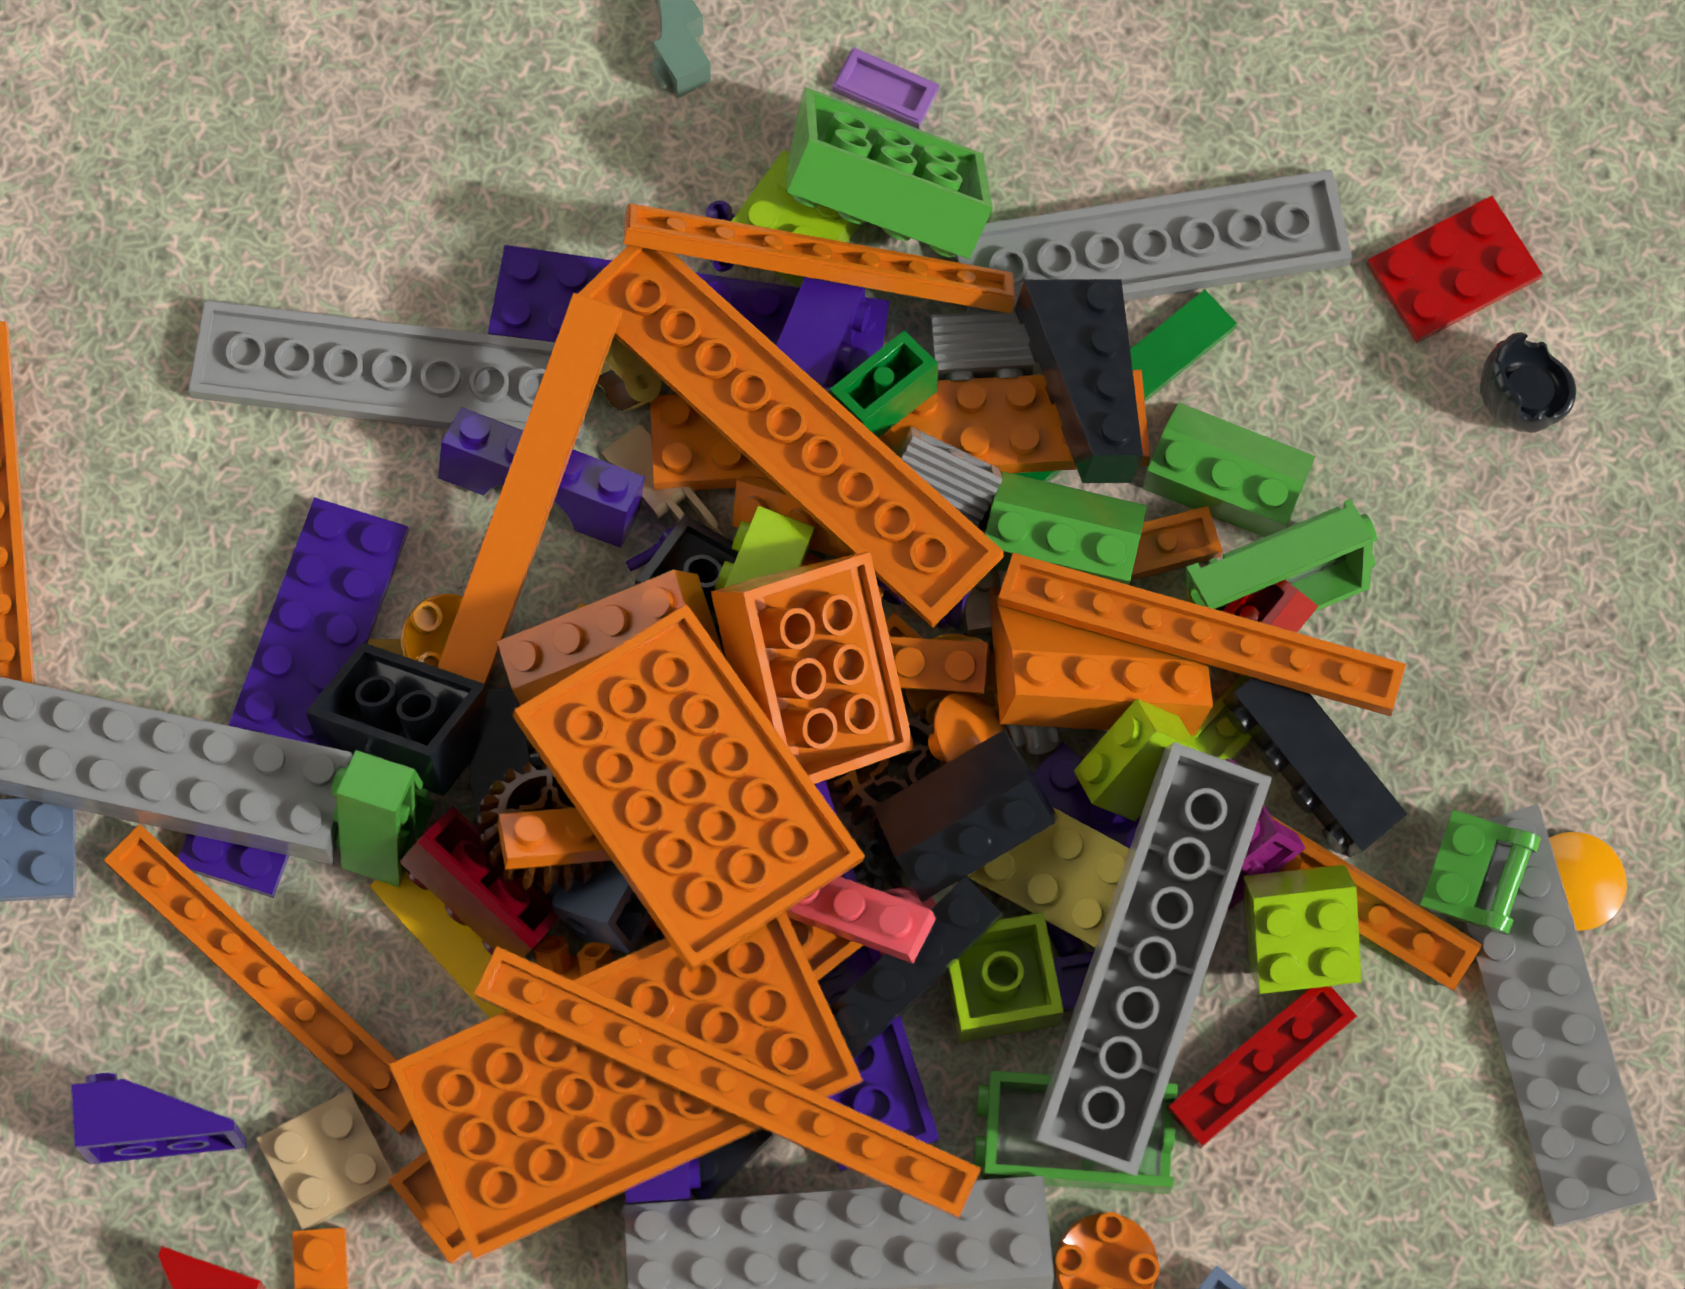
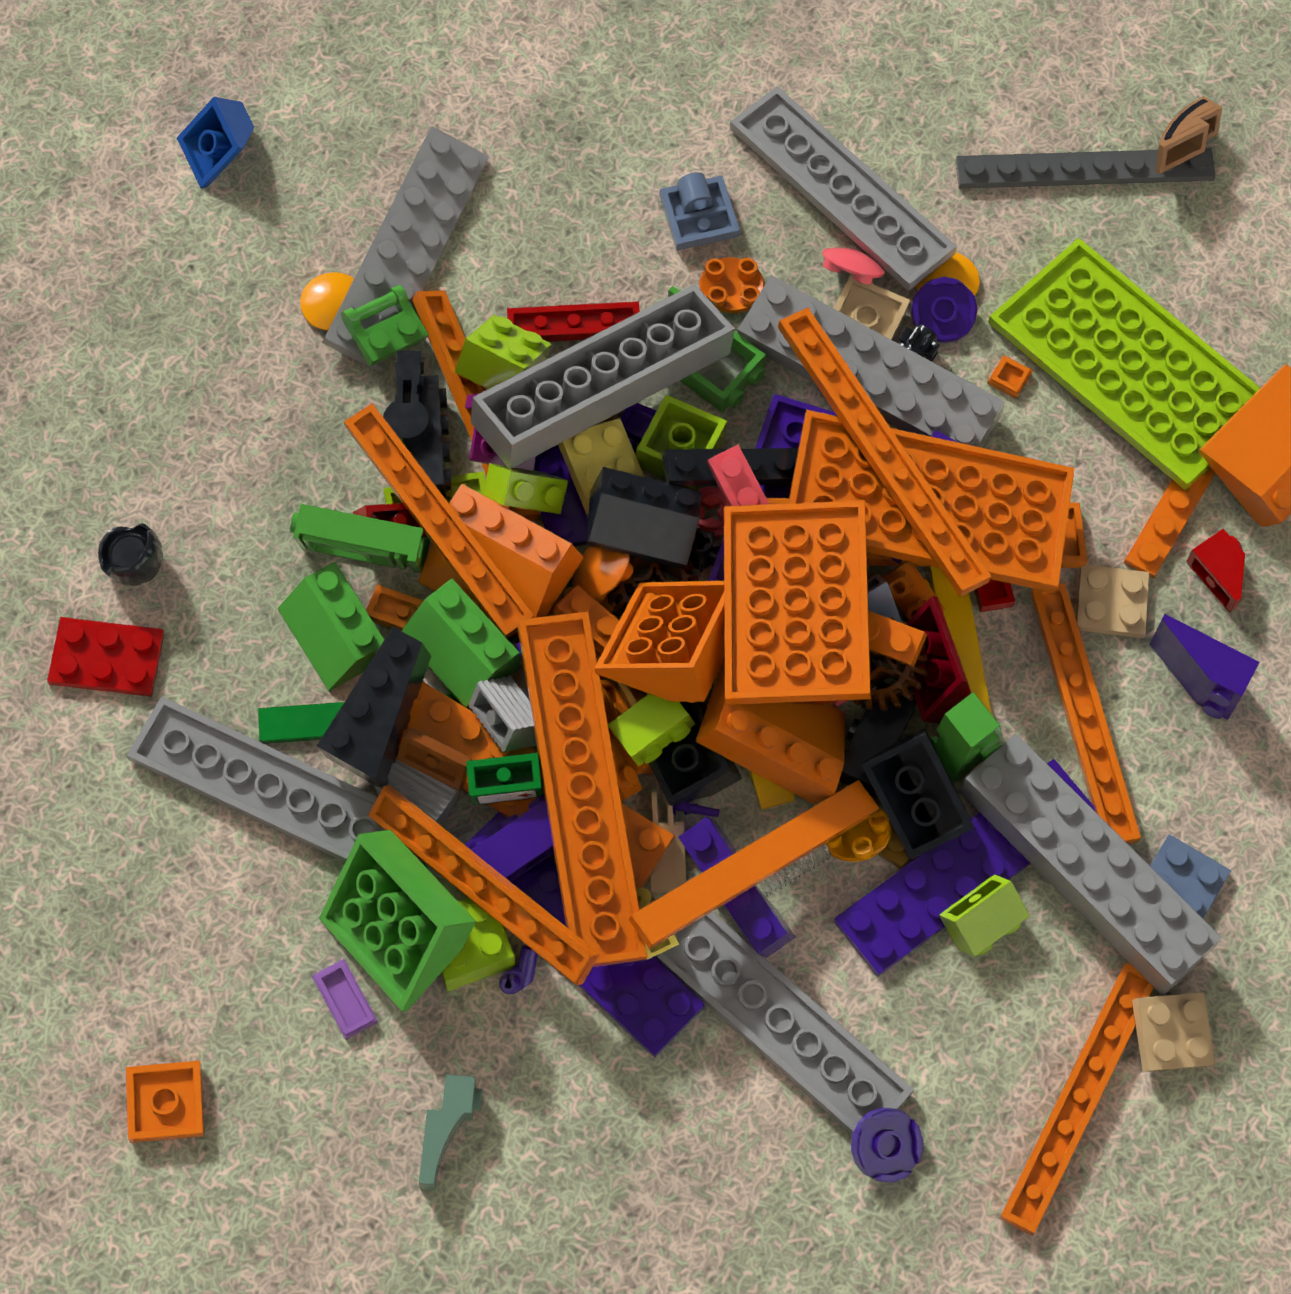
camera: 145 degrees left, 5 degrees down
(181, 313) = (886, 1144): none -> dark purple tile
(232, 635) = (984, 916): none -> lime brick
(1007, 370) = (433, 758): none -> dark orange plate
(1335, 745) = (407, 415): none -> black piece

